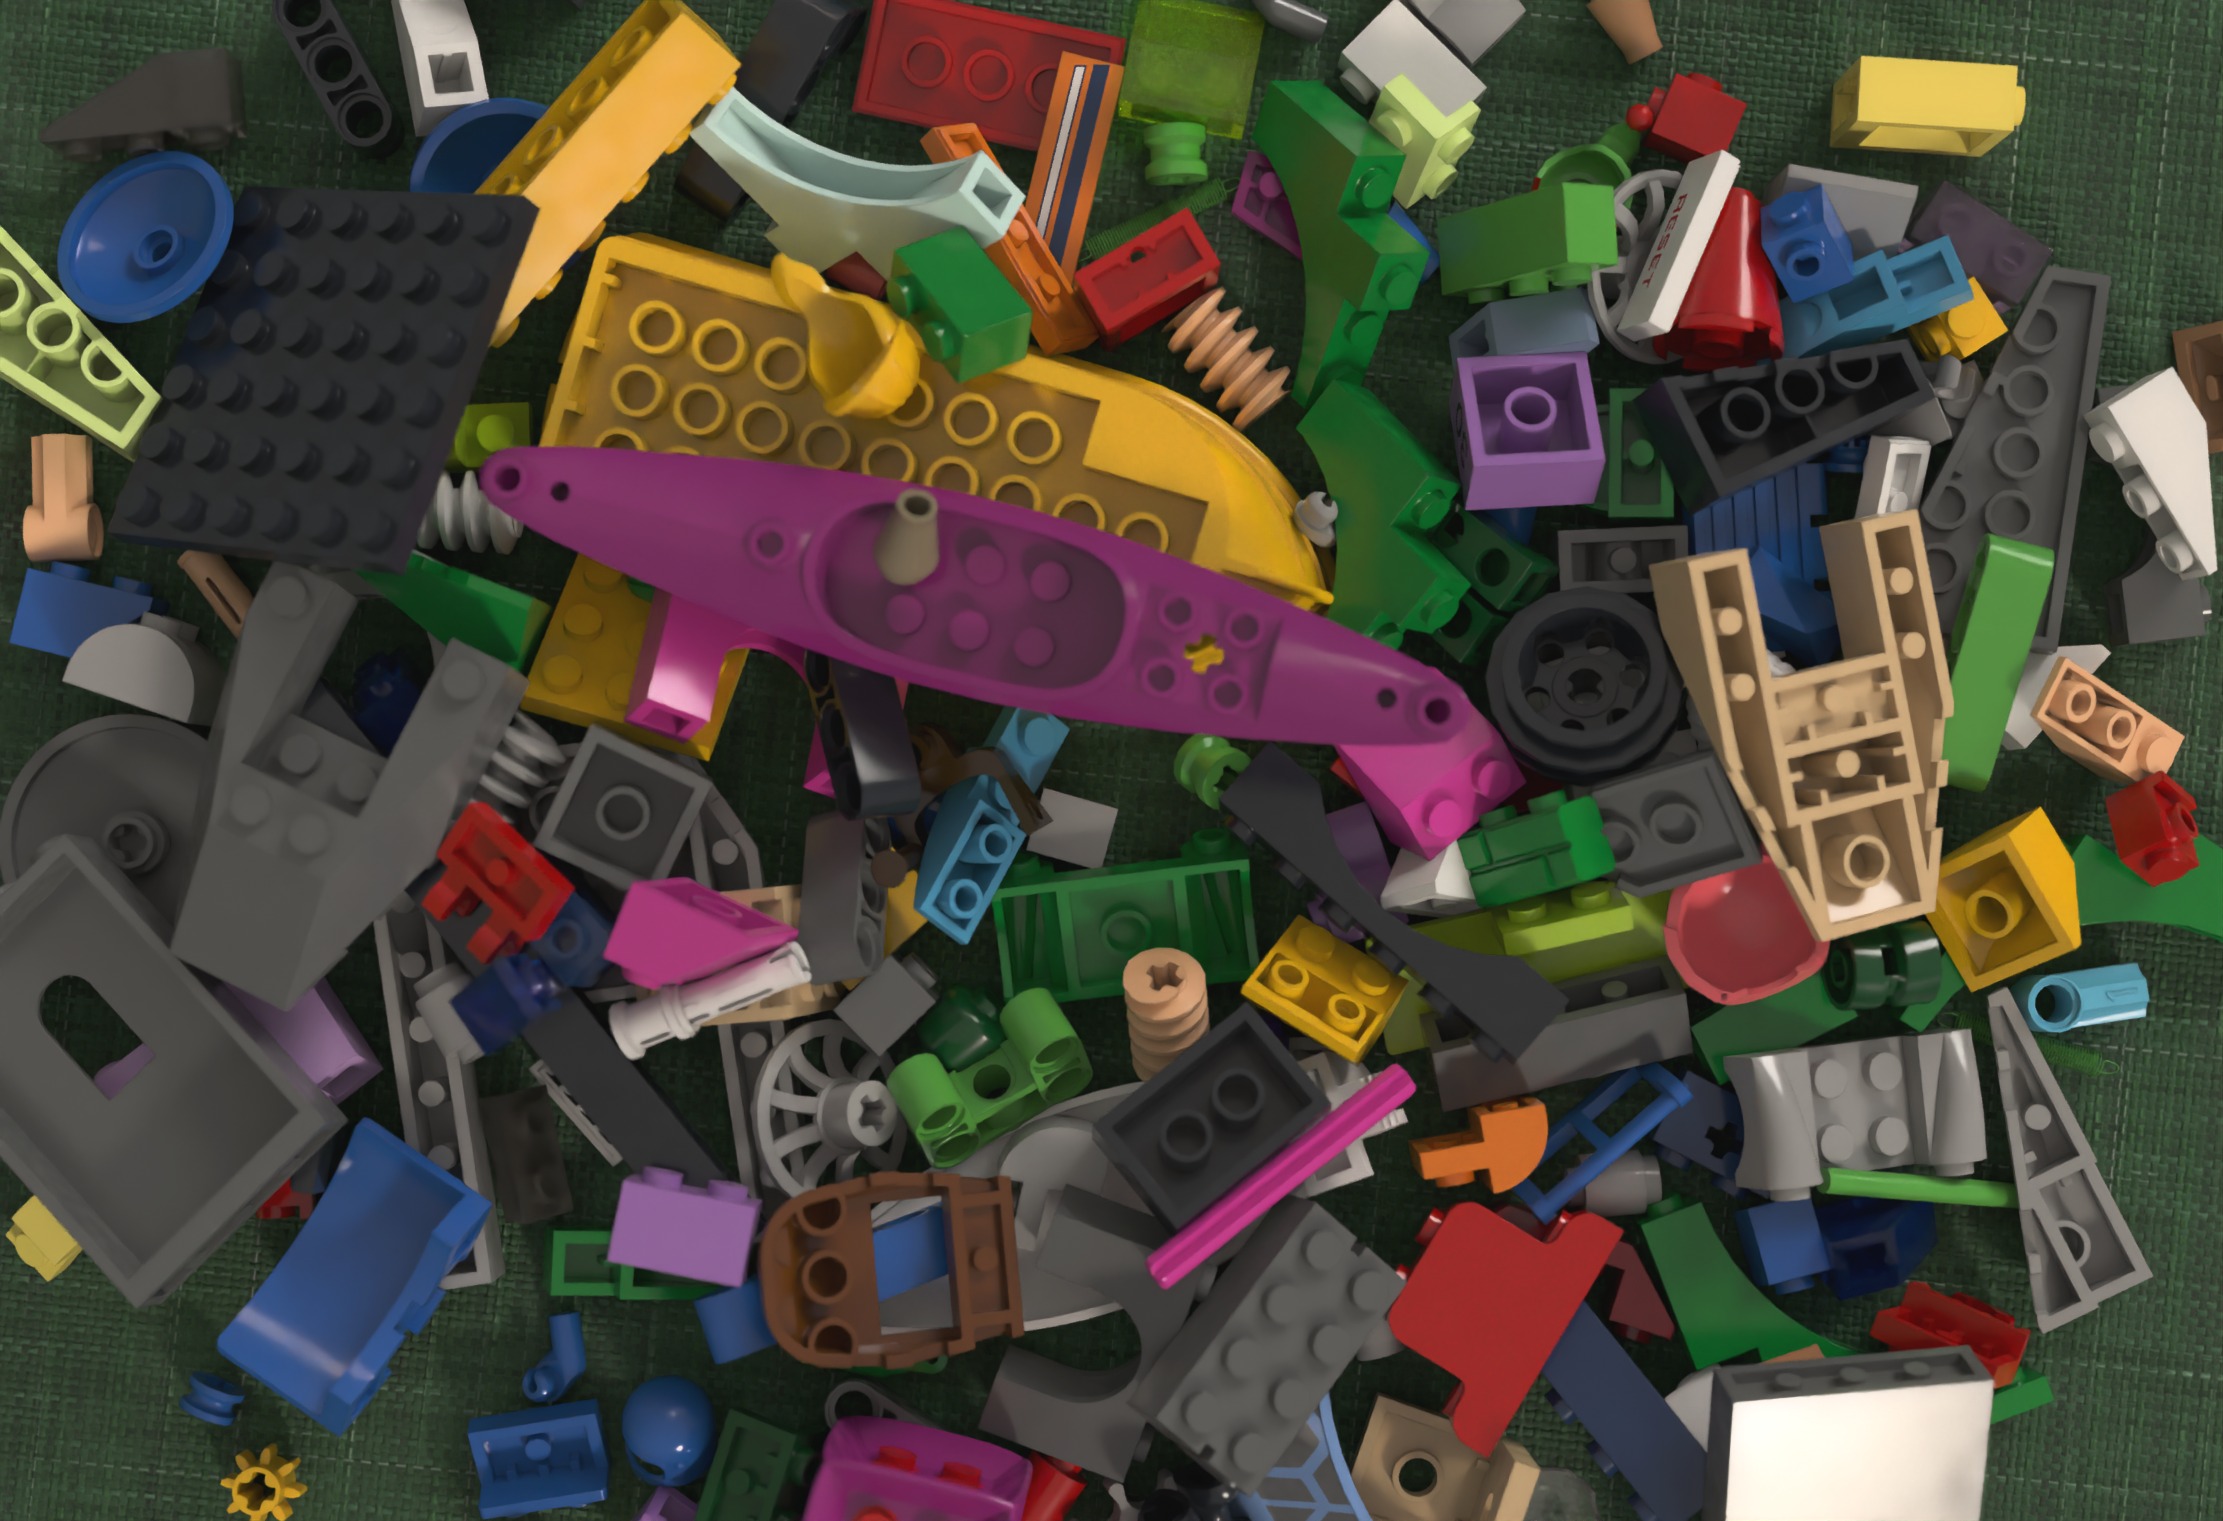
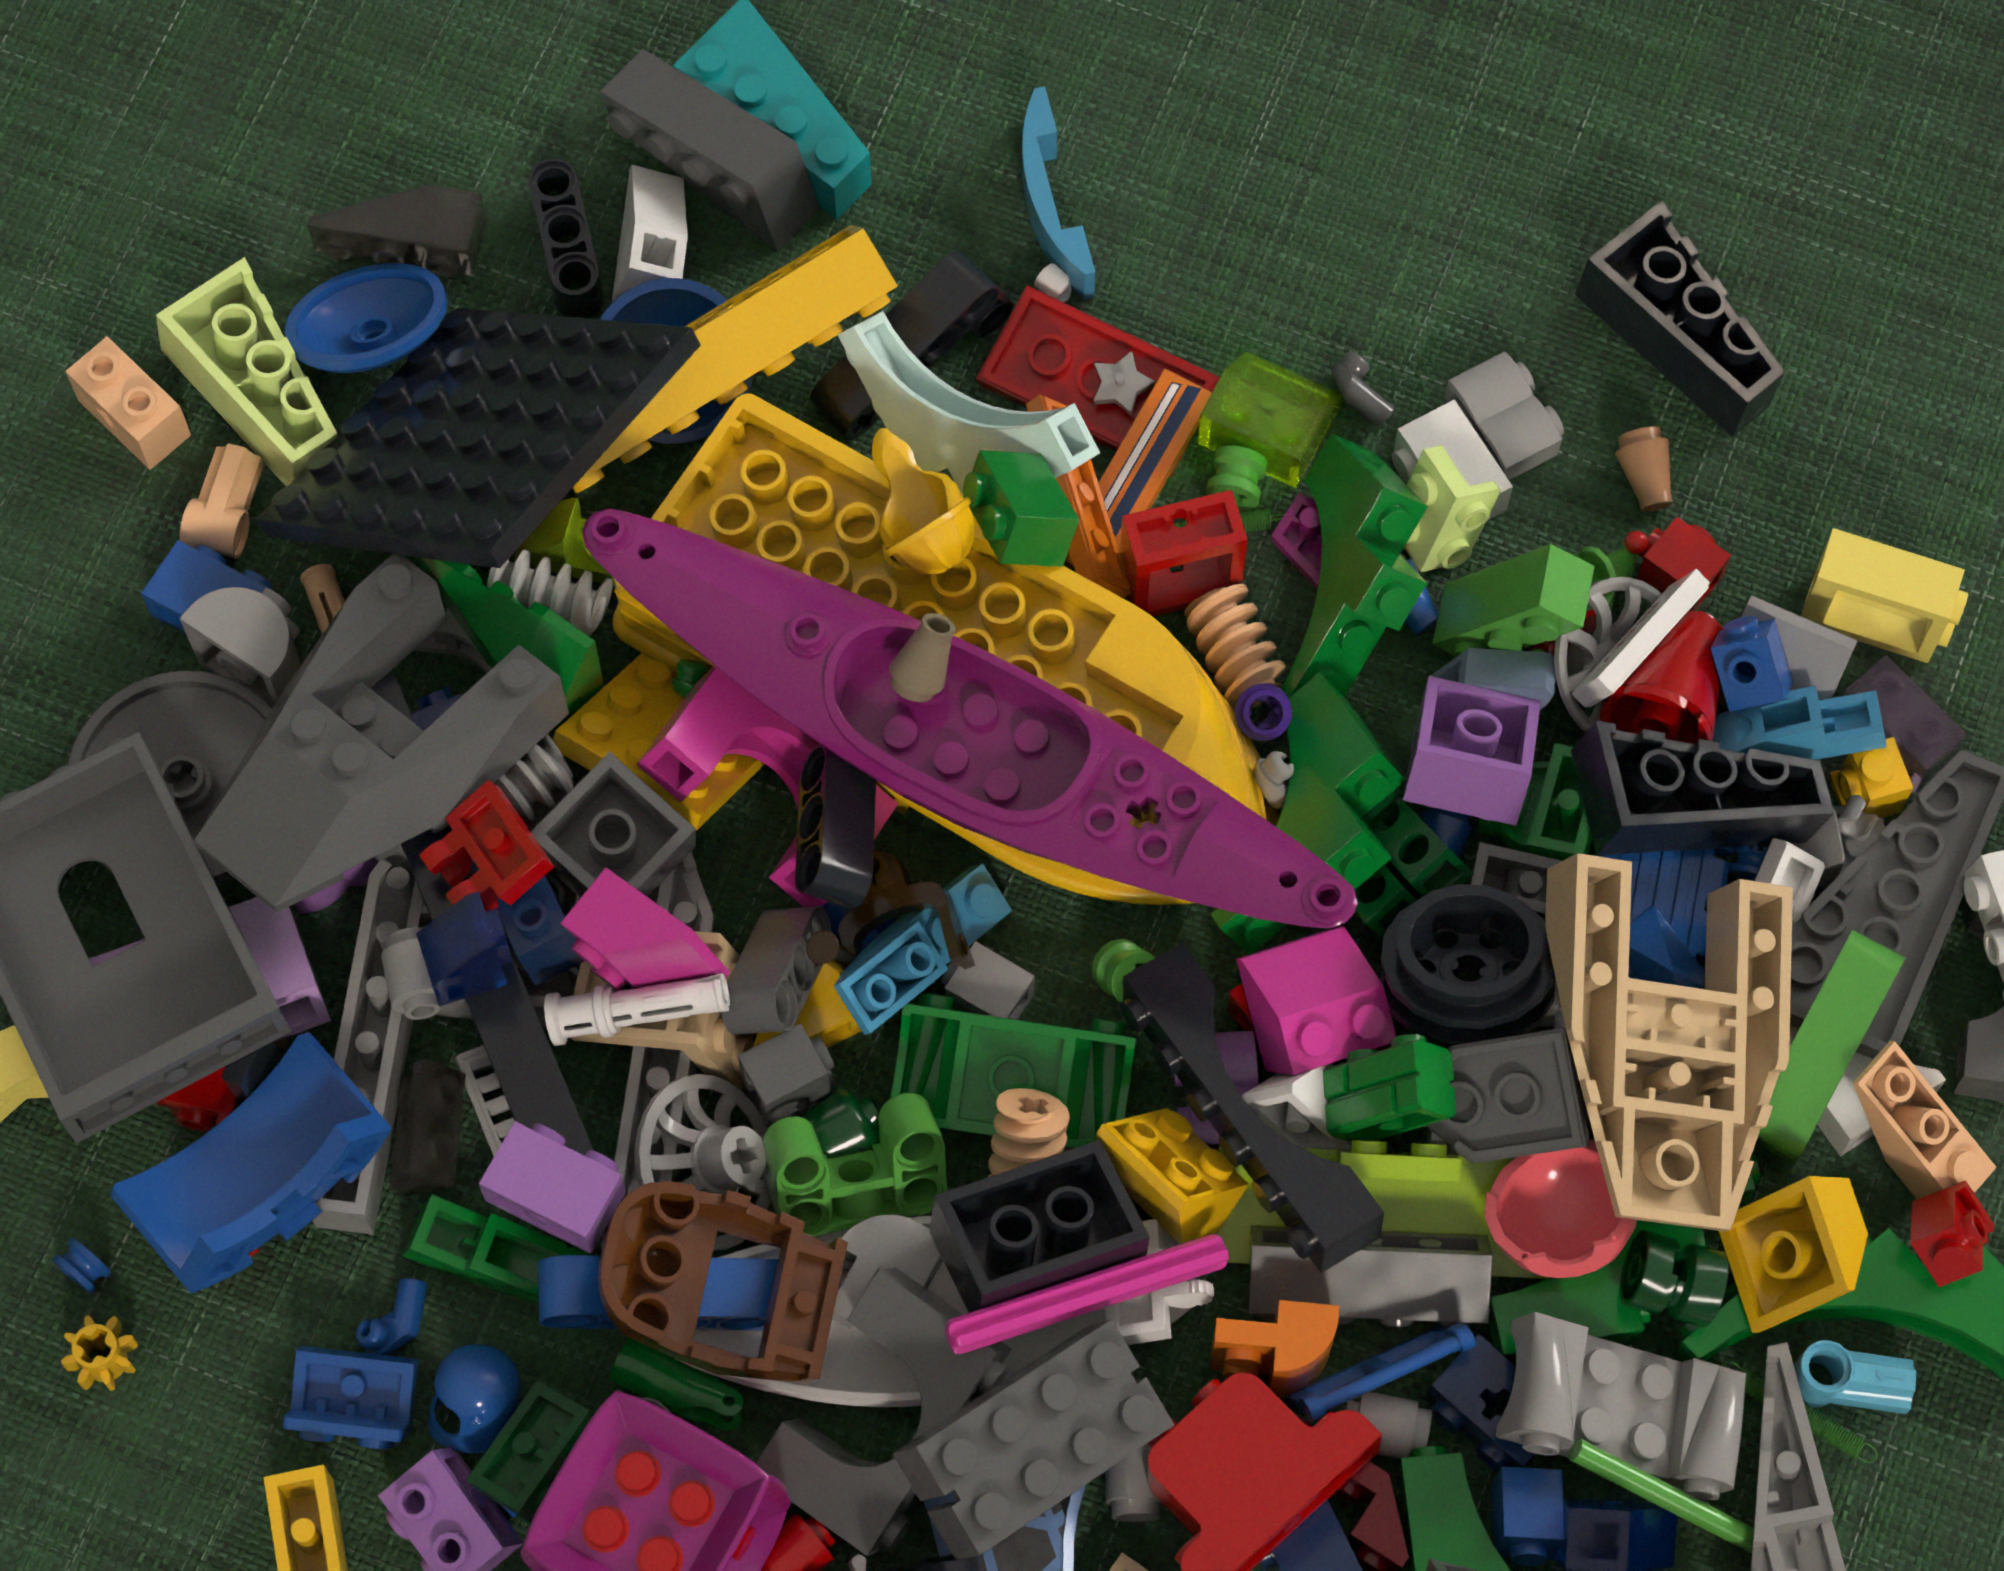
camera: 20 degrees right, 20 degrees down
(1017, 77) = (1121, 383): none -> light grey piece
(1283, 446) = (1275, 714): none -> dark purple cone

